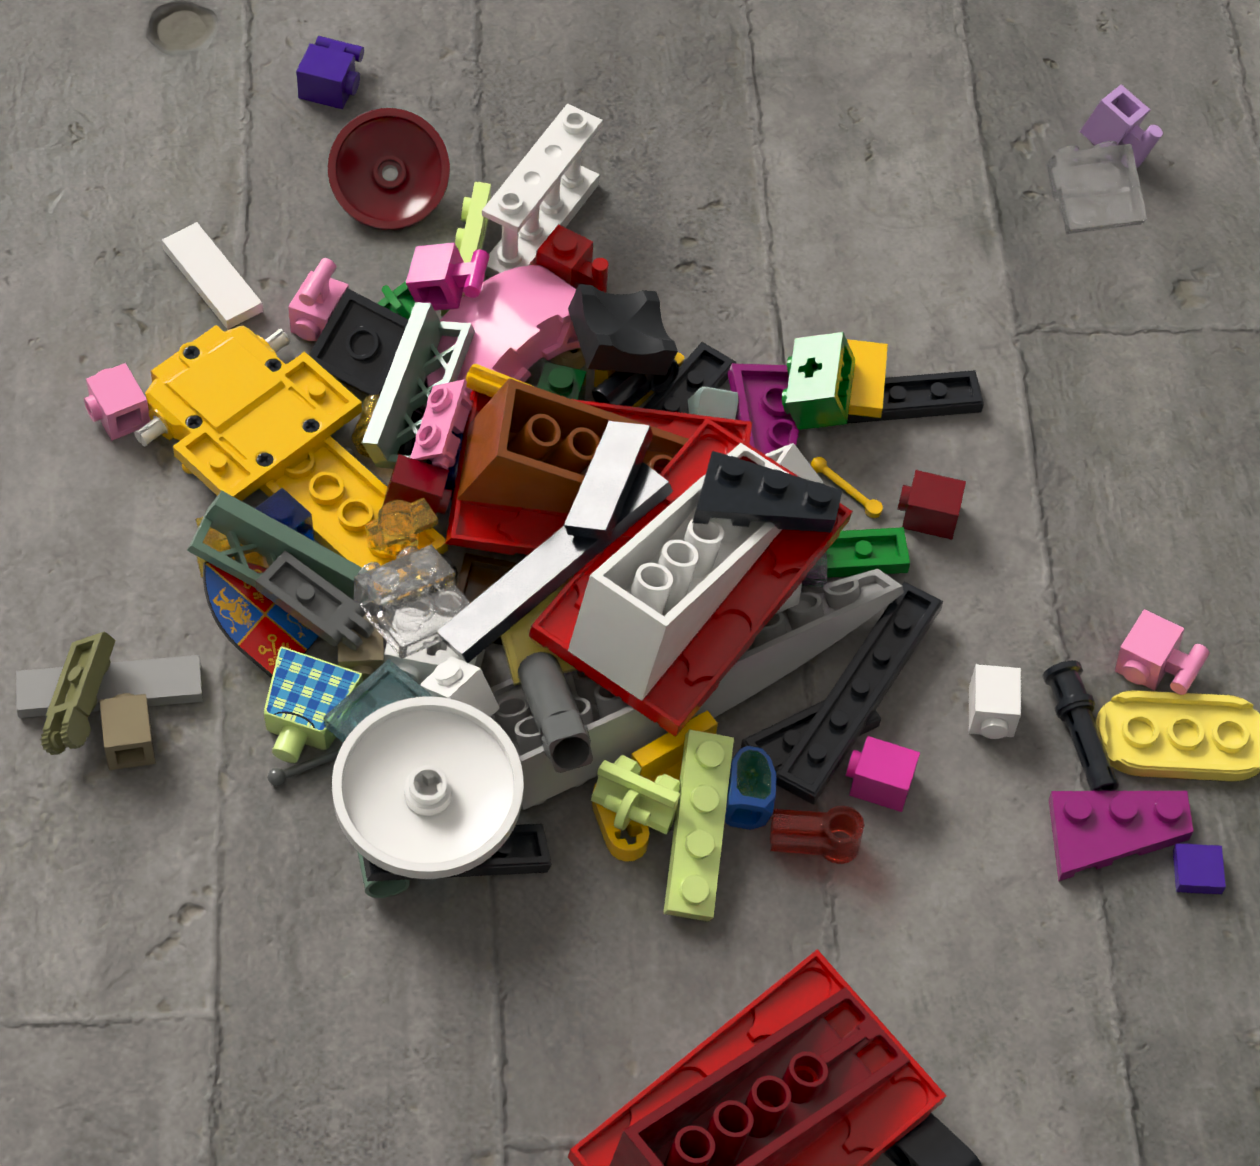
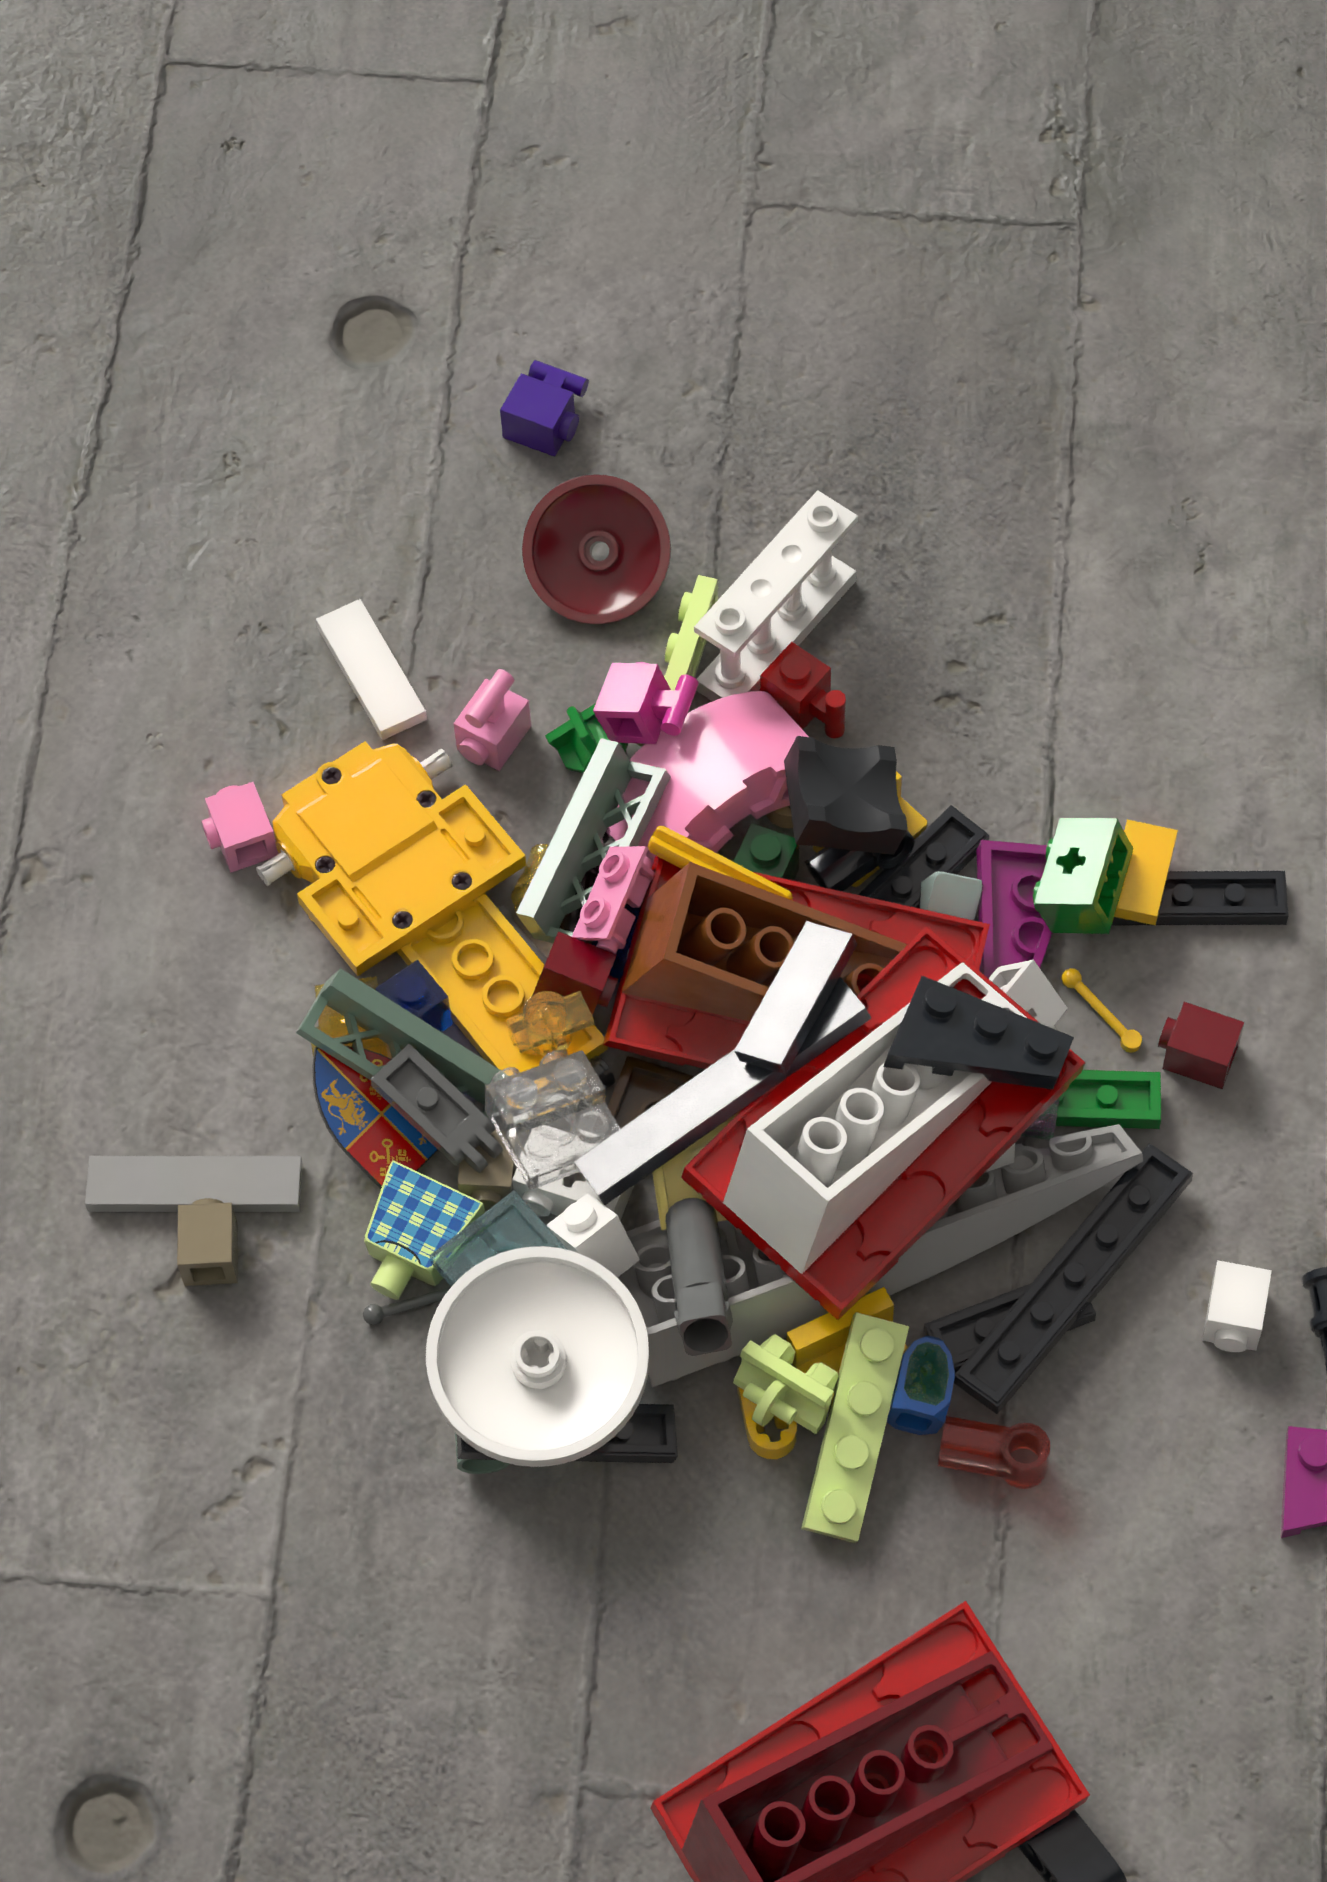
camera: 15 degrees right, 5 degrees up
(76, 693) = (153, 1194): olive hinge -> none
(359, 343) = (532, 776): black plate -> none
(882, 773) = (1086, 1383): dark pink brick -> none

